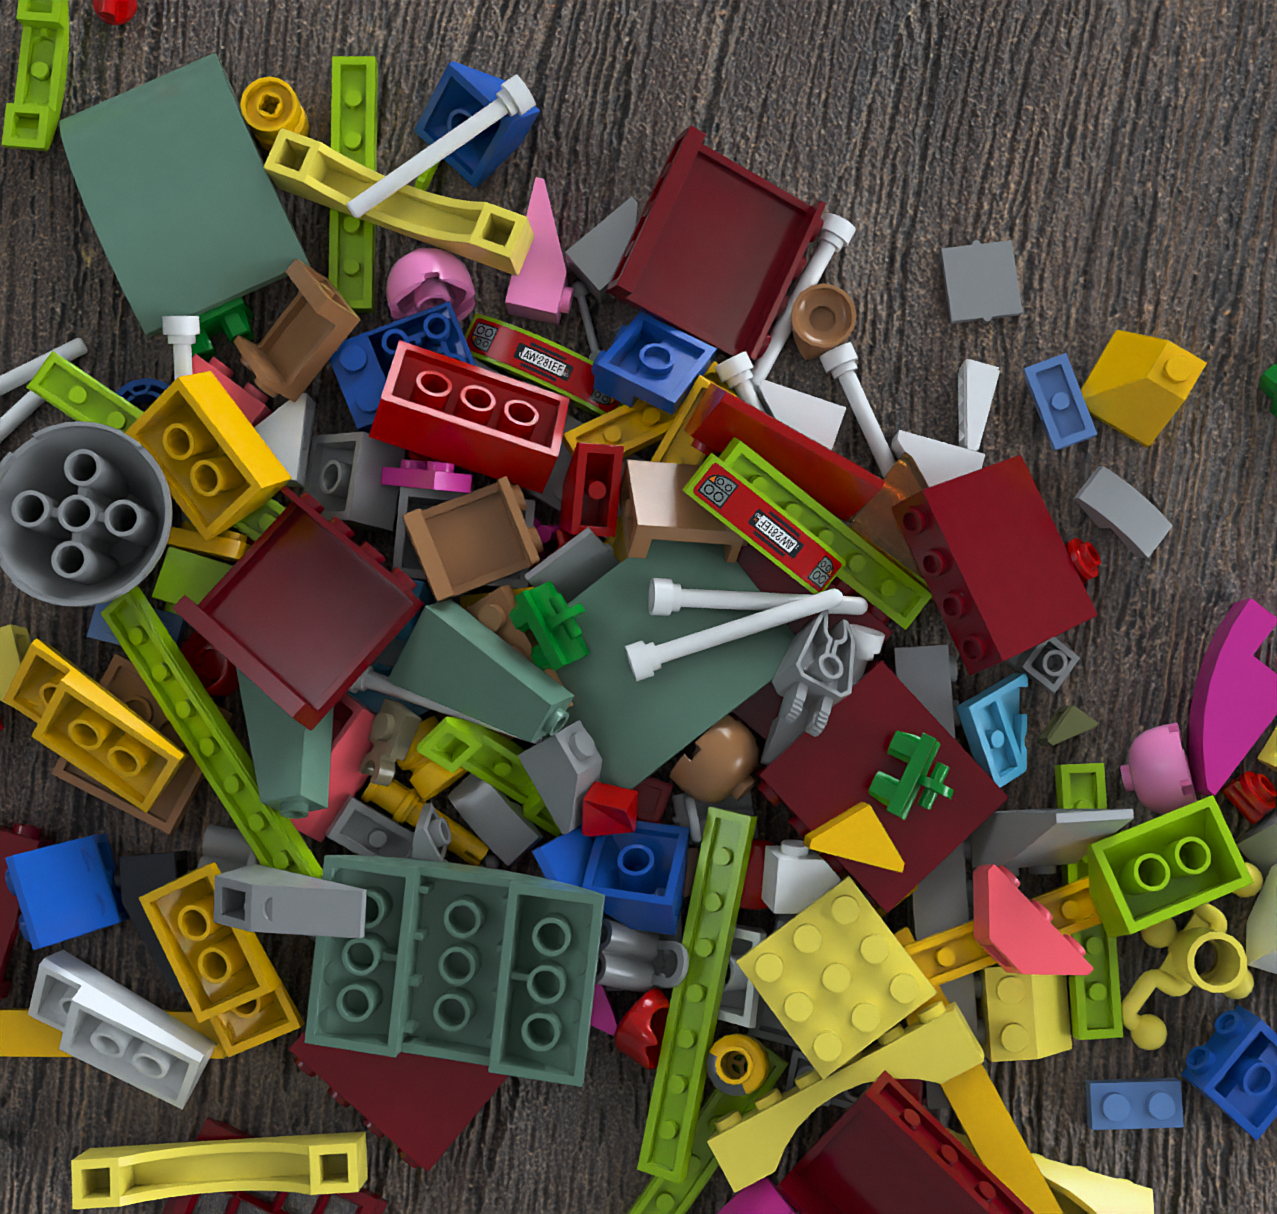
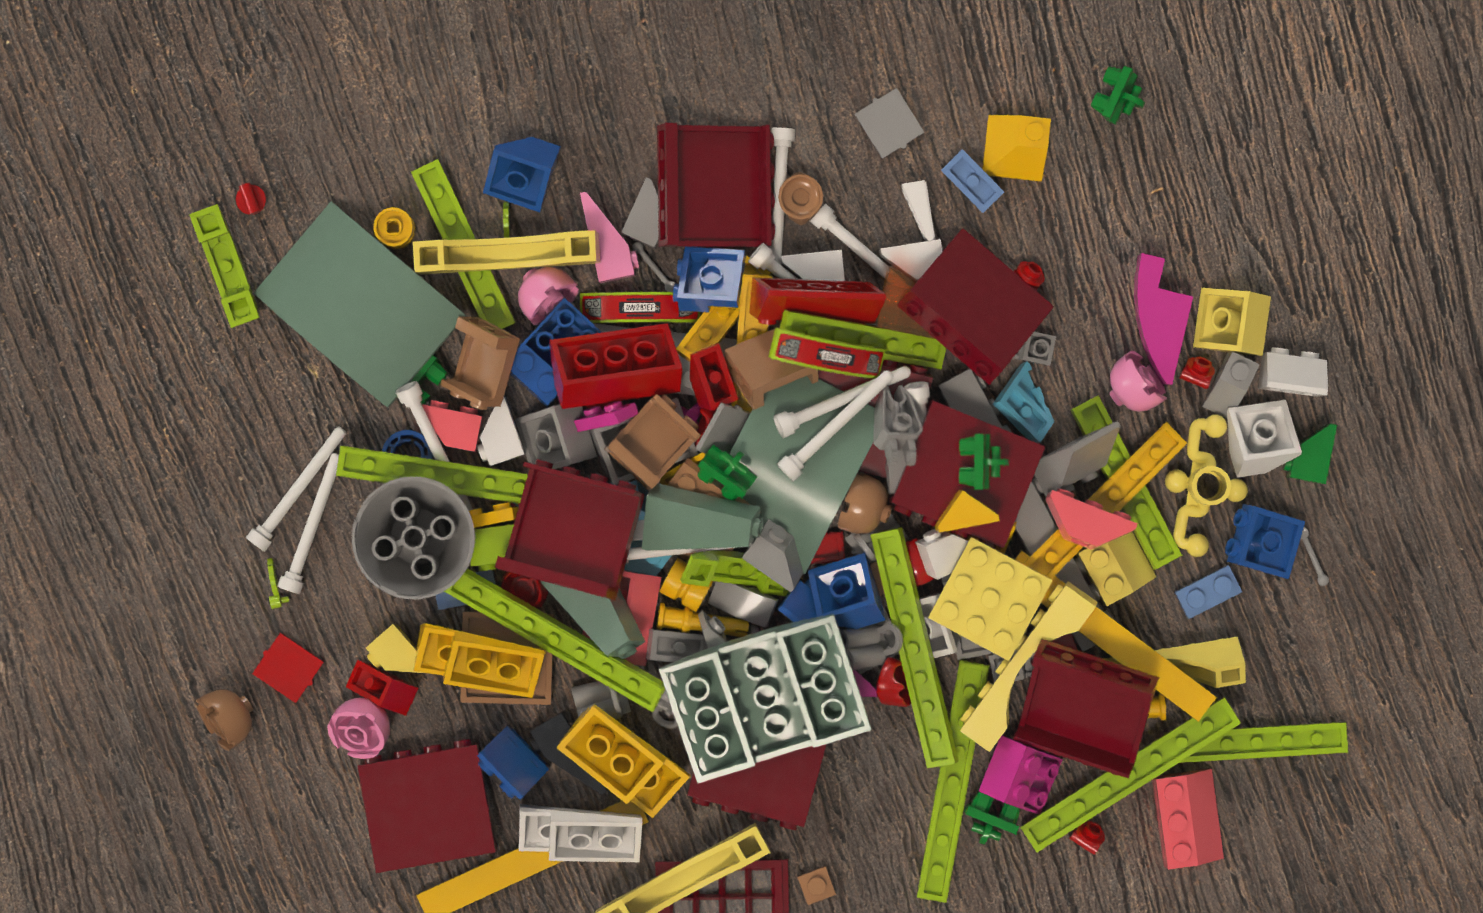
camera: 30 degrees left, 5 degrees up
(208, 453) = (468, 464): yellow slope -> none
(288, 903) = (653, 705): light grey slope -> none
(392, 736) = (661, 582): dark tan plate -> none
(510, 100) = (545, 156): white piece -> none
(609, 810) = (812, 564): red slope -> none
(722, 1061) = (948, 681): yellow head -> none
(1065, 724) = (1065, 382): olive slope -> none
(1122, 508) = (1042, 232): light grey slope -> none
(1164, 868) = (1155, 444): lime slope -> none

